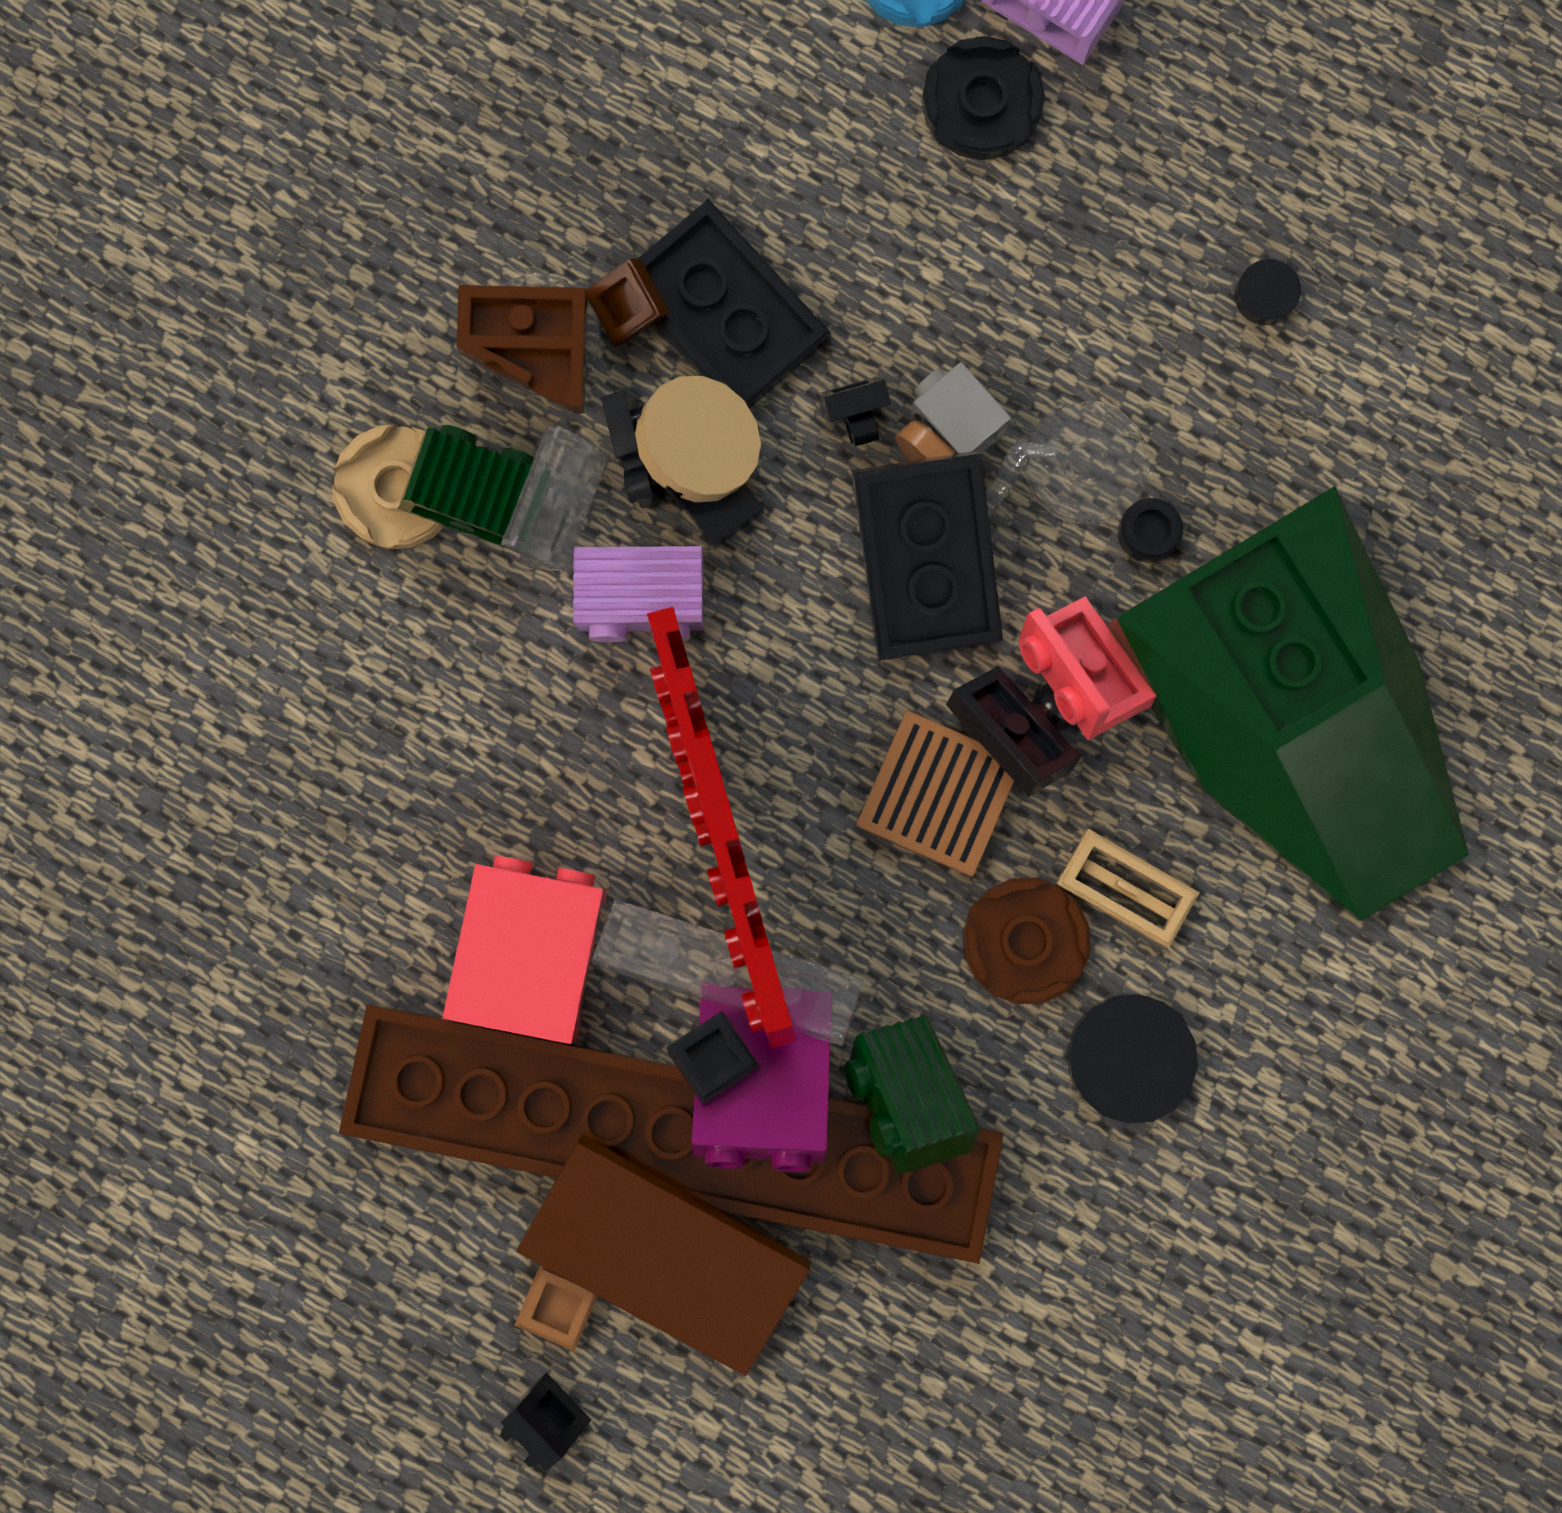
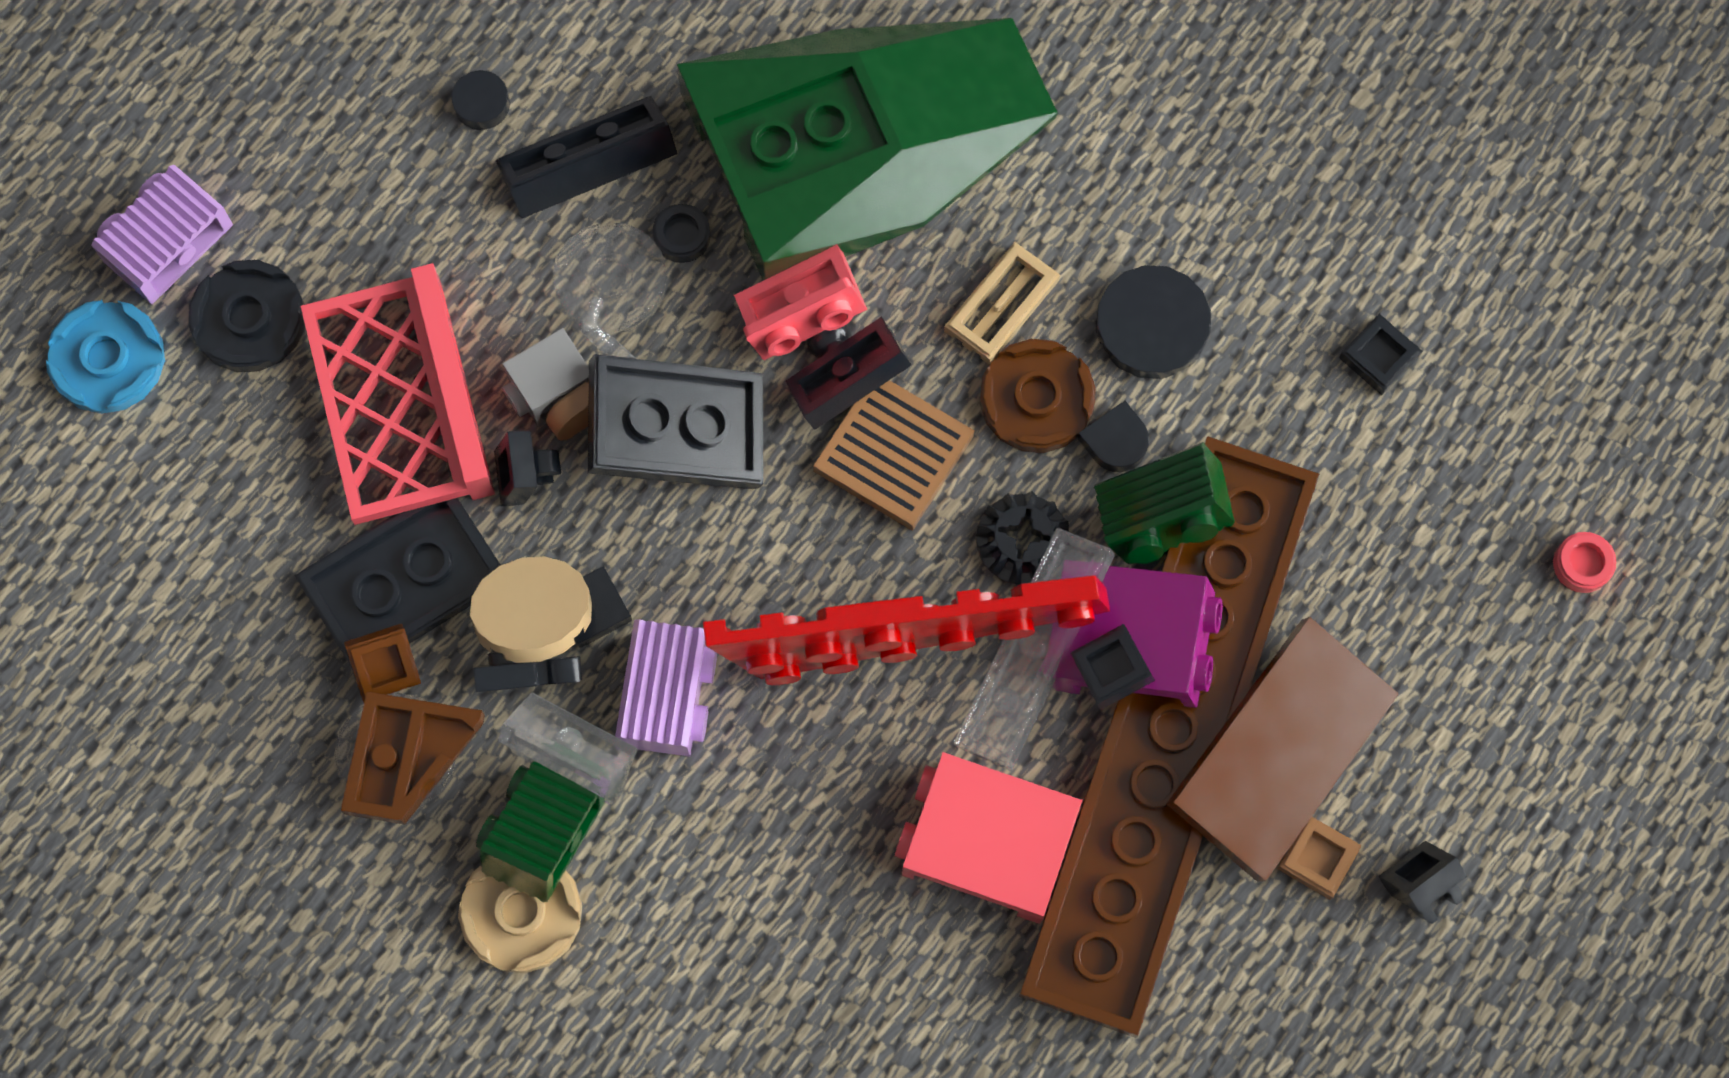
camera: 80 degrees left, 10 degrees down
(885, 924) = (999, 550): none -> black gear
(933, 314) = (447, 386): none -> coral fence
(989, 1034) = (1116, 439): none -> black tile
(1135, 1318) = (1380, 354): none -> black tile
(1222, 415) = (587, 156): none -> black slope

